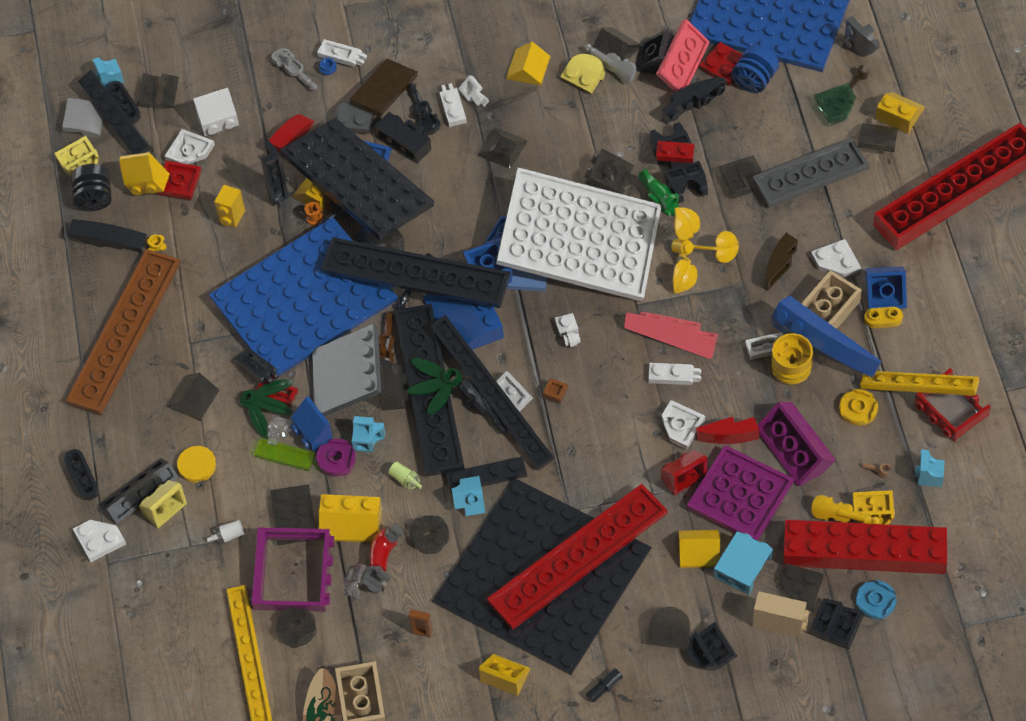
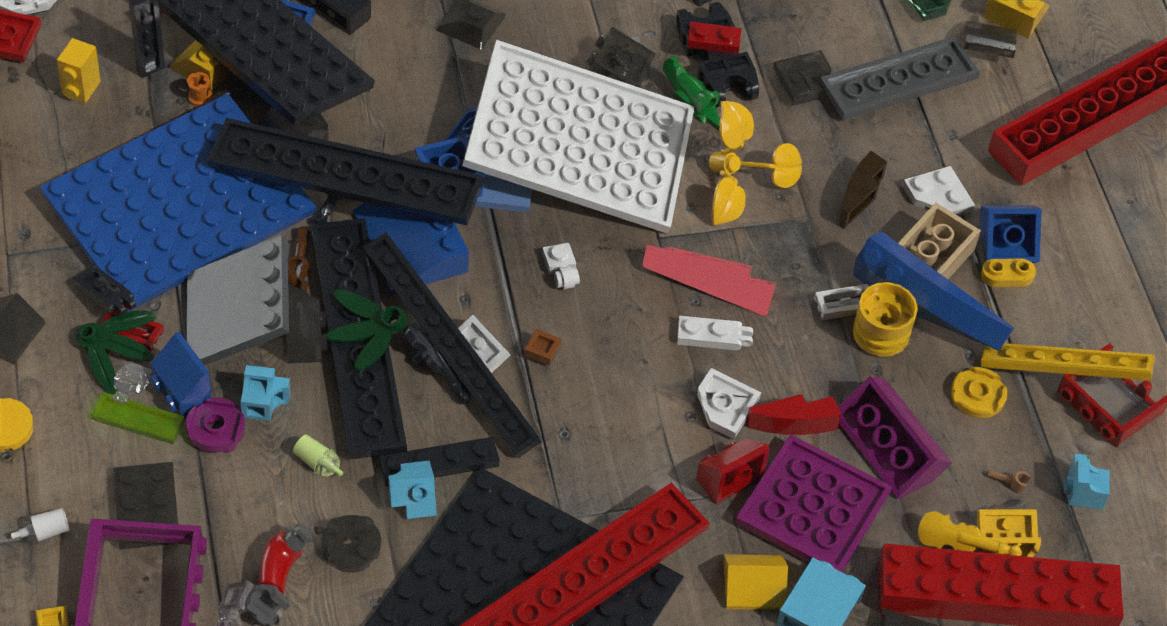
camera: 10 degrees left, 5 degrees down
(350, 517) = (233, 511): yellow slope -> none

